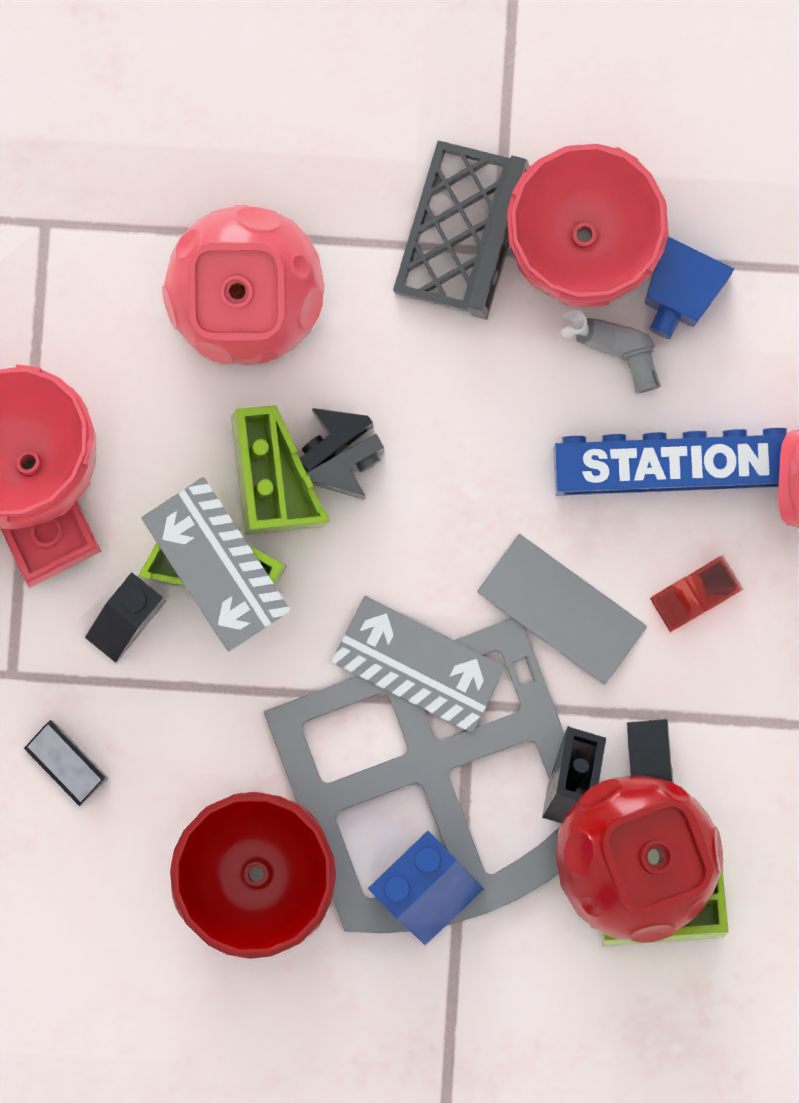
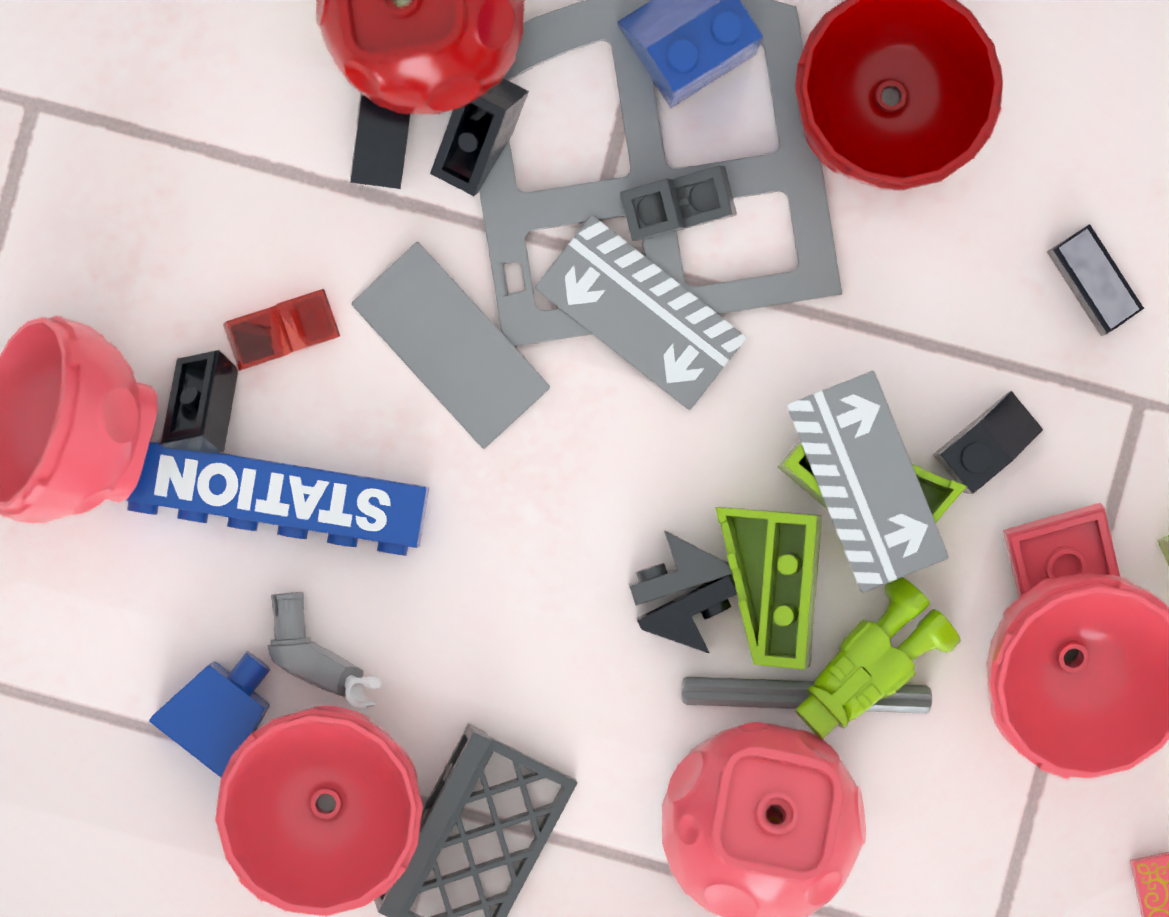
camera: 165 degrees left, 5 degrees up
(185, 424) = (869, 665): none -> lime piece
(229, 393) = (787, 694): none -> light grey axle
(406, 755) = (678, 203): none -> dark grey slope
(747, 522) = (200, 403): none -> black slope

